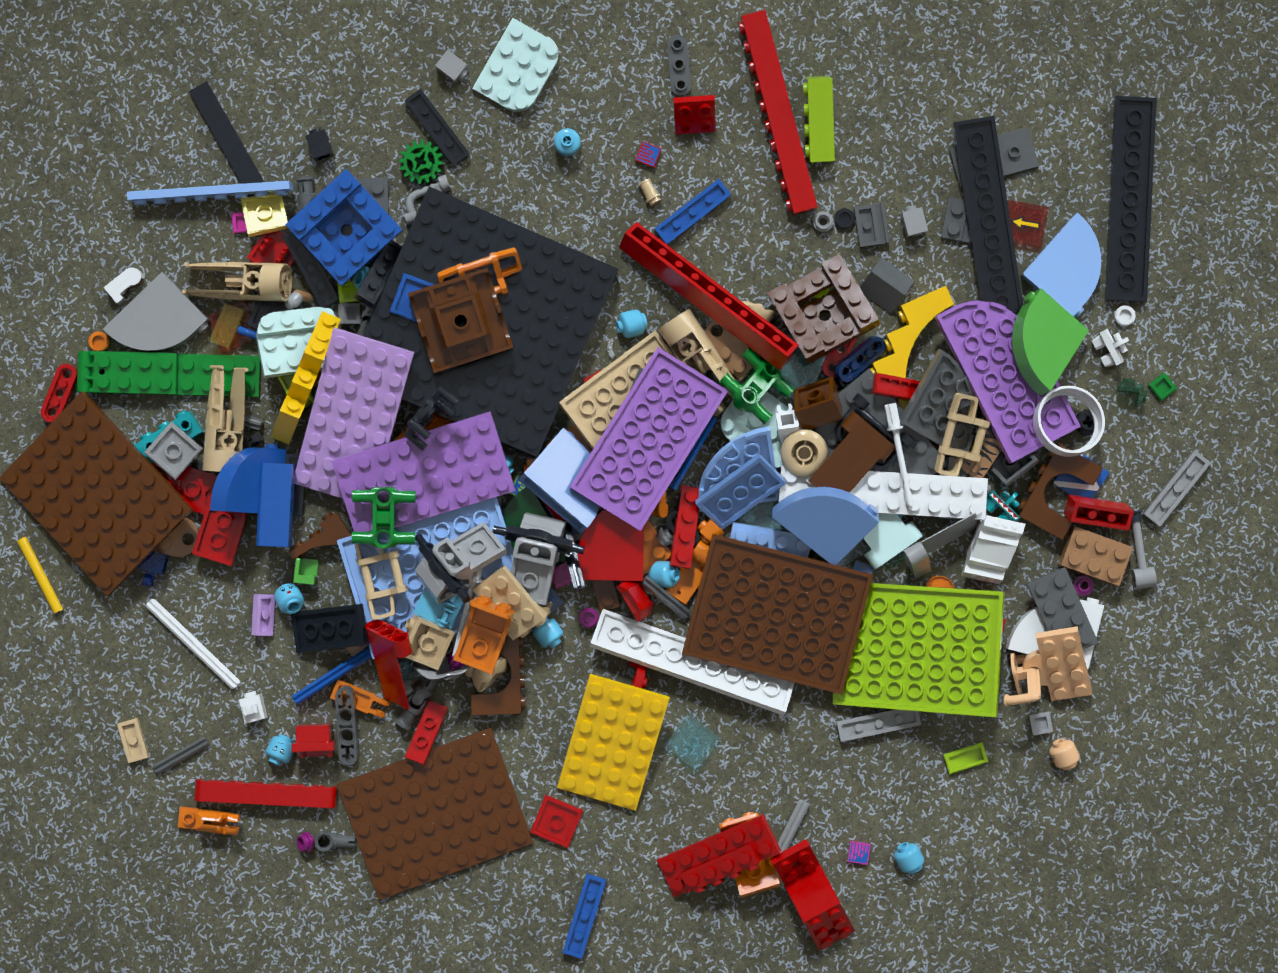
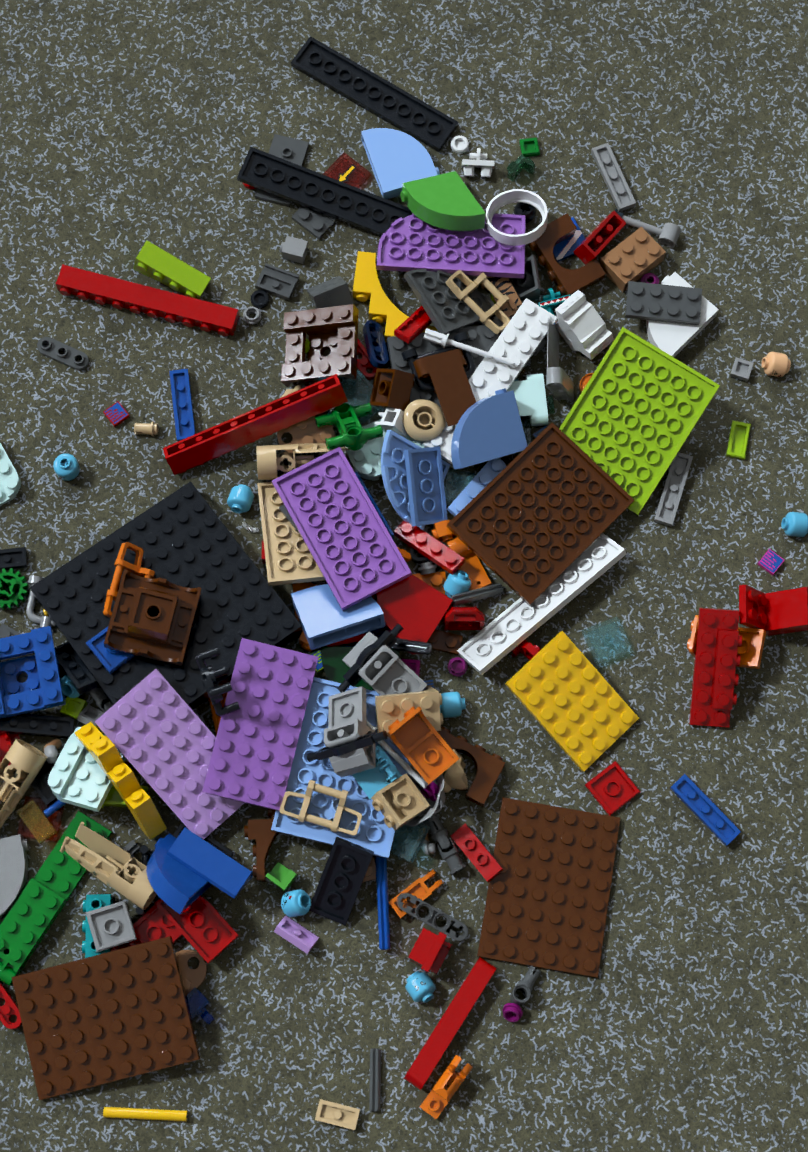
camera: 60 degrees left, 15 degrees down
(192, 643) = (284, 1012): white axle -> none
(253, 707) = (370, 989): white brick -> none
(384, 517) = (275, 772): green piece -> none
(388, 645) = (387, 836): red piece -> none
(694, 114) = (108, 359): red plate -> none
(793, 825) = (716, 595): light grey axle -> none
(1055, 664) = (705, 331): light nougat plate -> none

